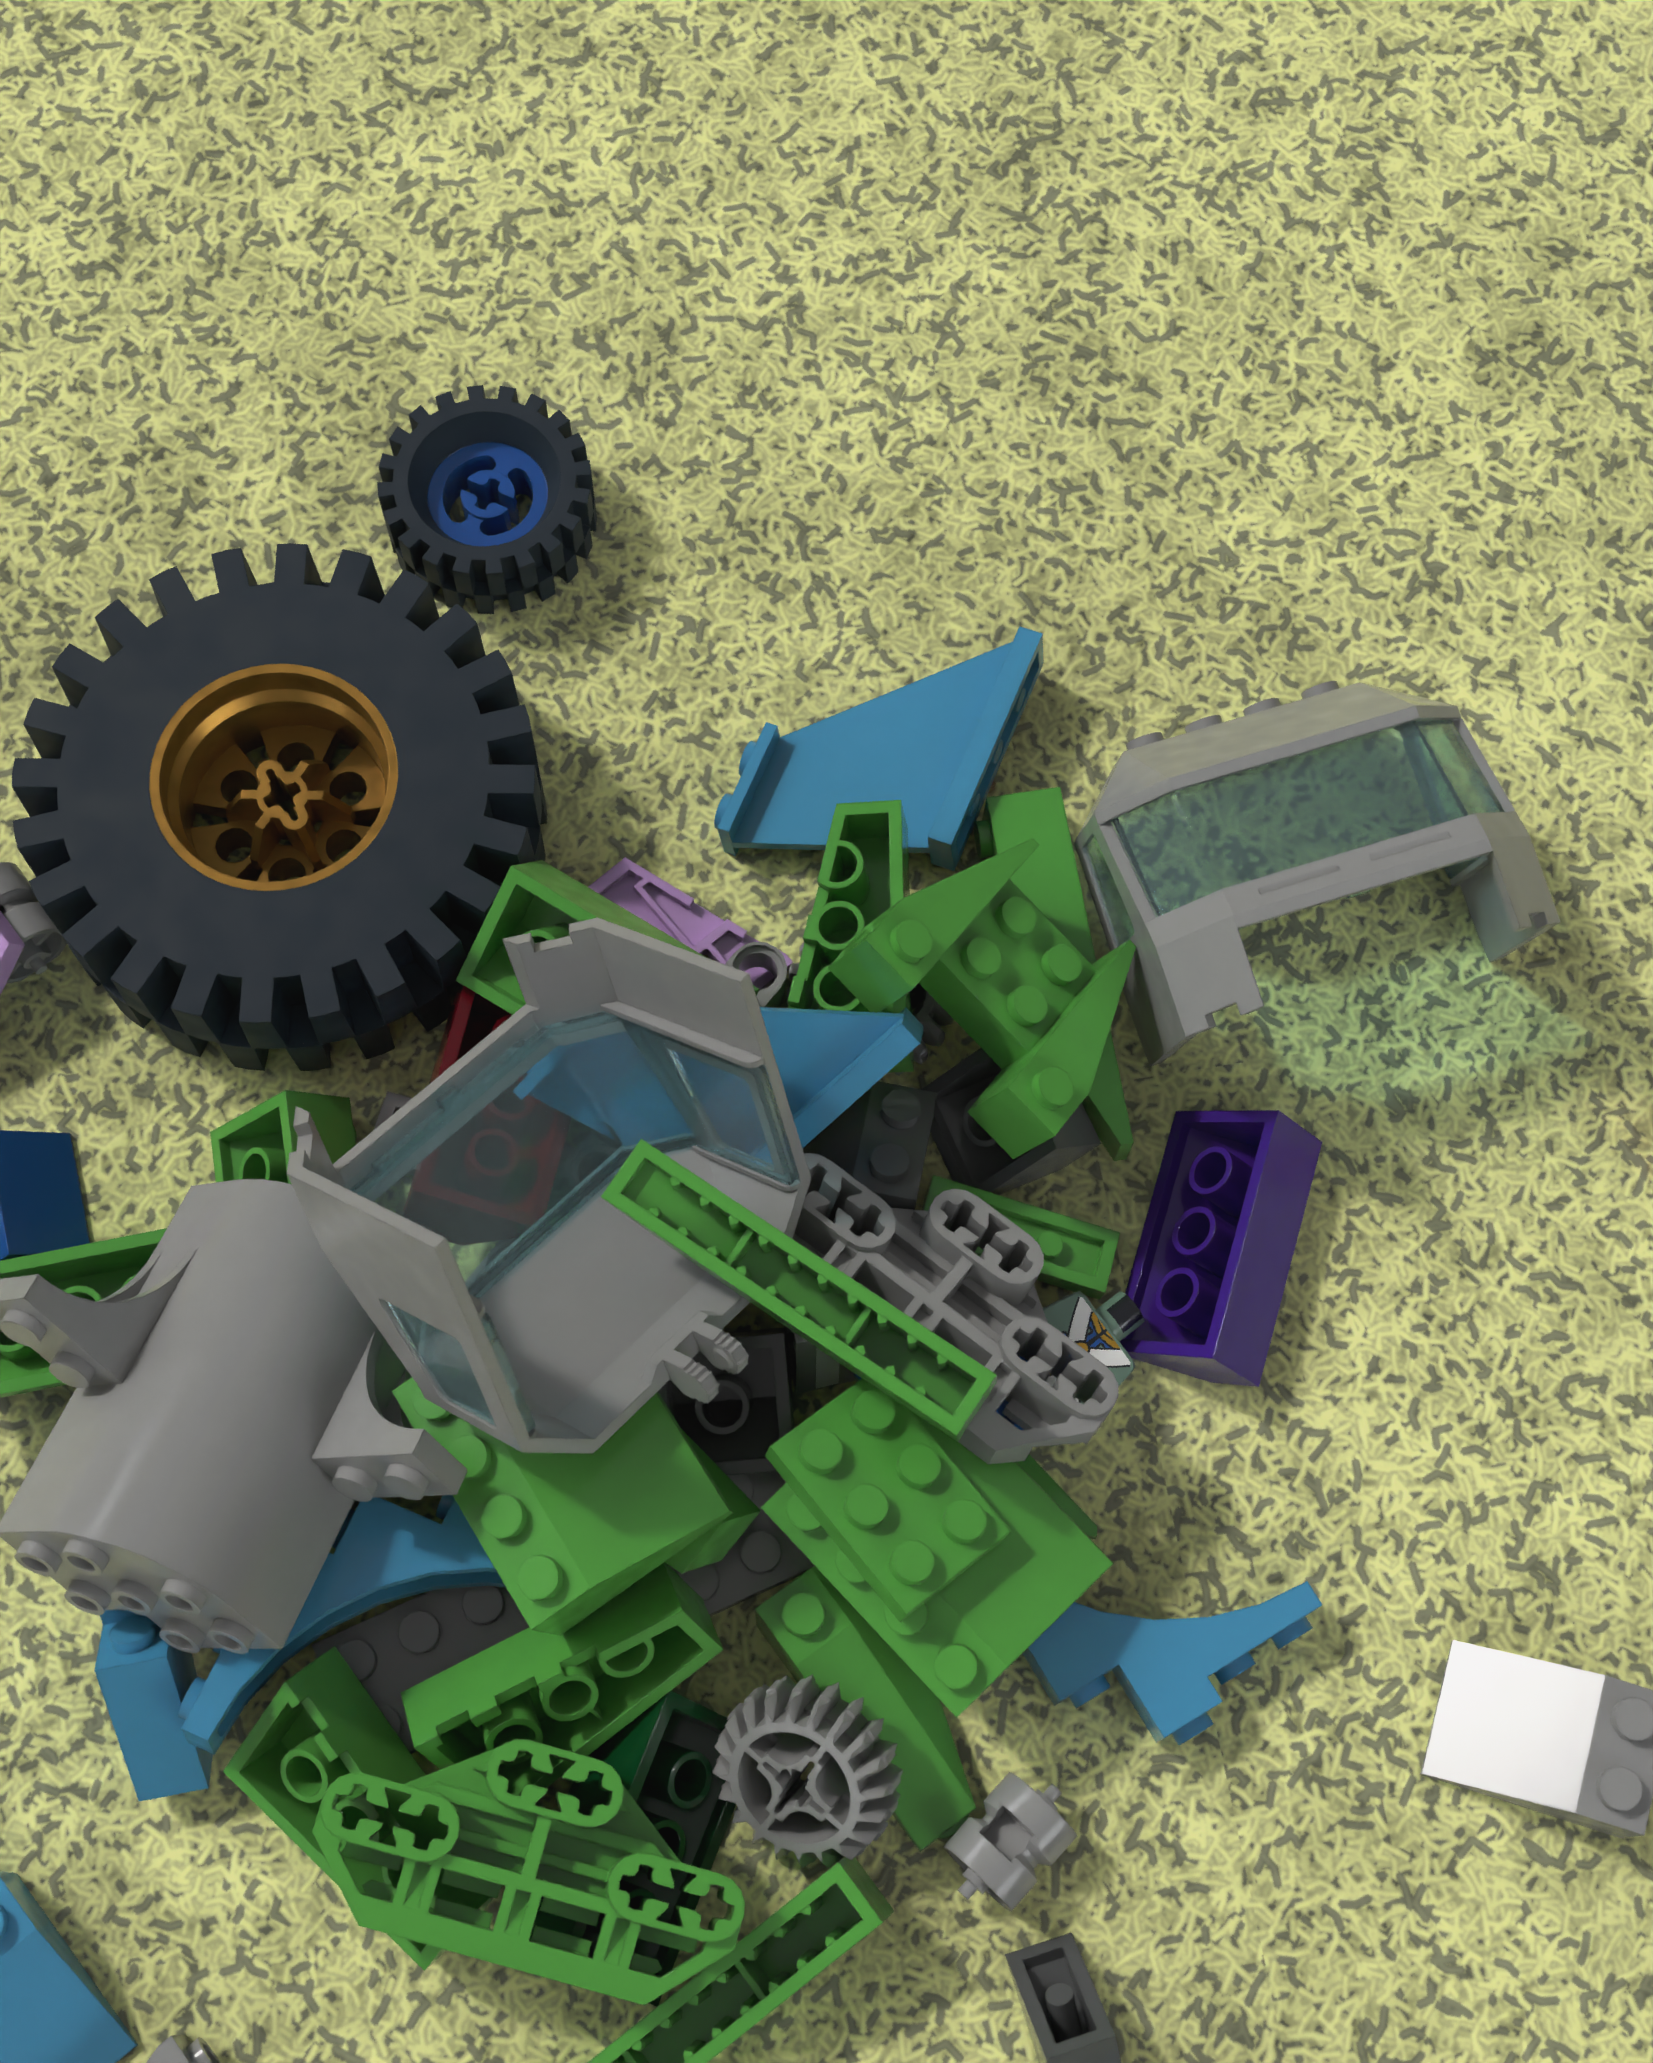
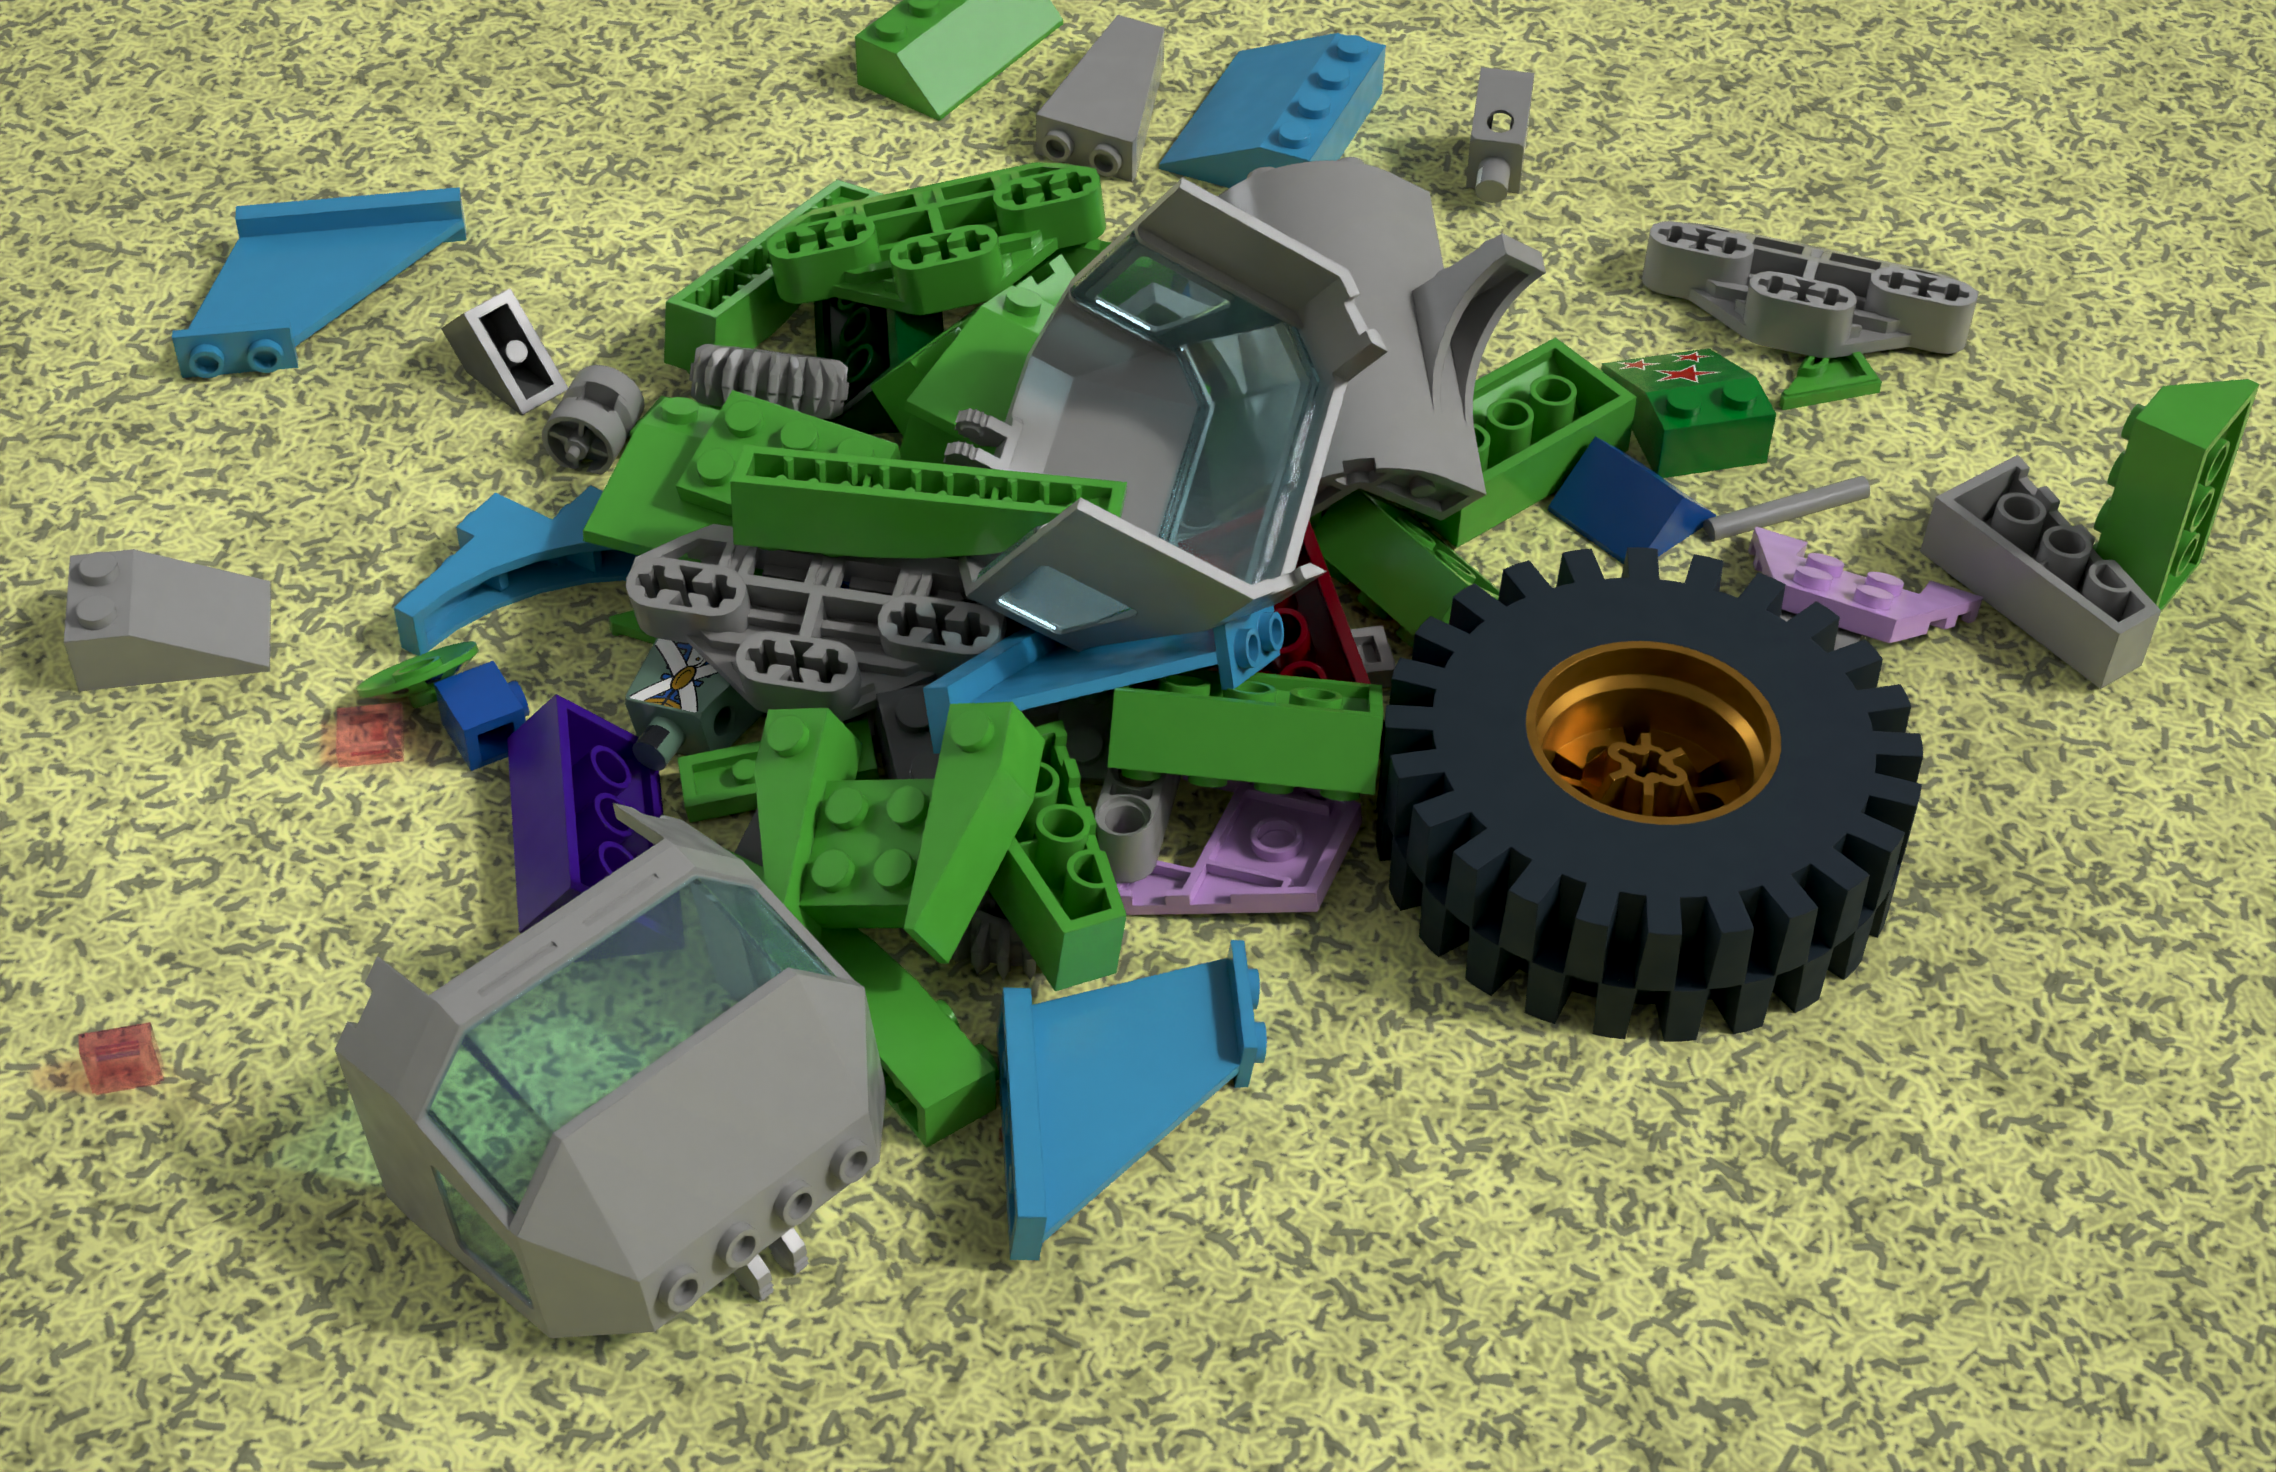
camera: 155 degrees right, 25 degrees down
(496, 454) = (1697, 1102): black wheel -> none
(1267, 1444) = (481, 713): none -> blue brick
(1330, 1547) = (417, 675): none -> bright green dish
(1378, 1489) = (370, 734): none -> tile

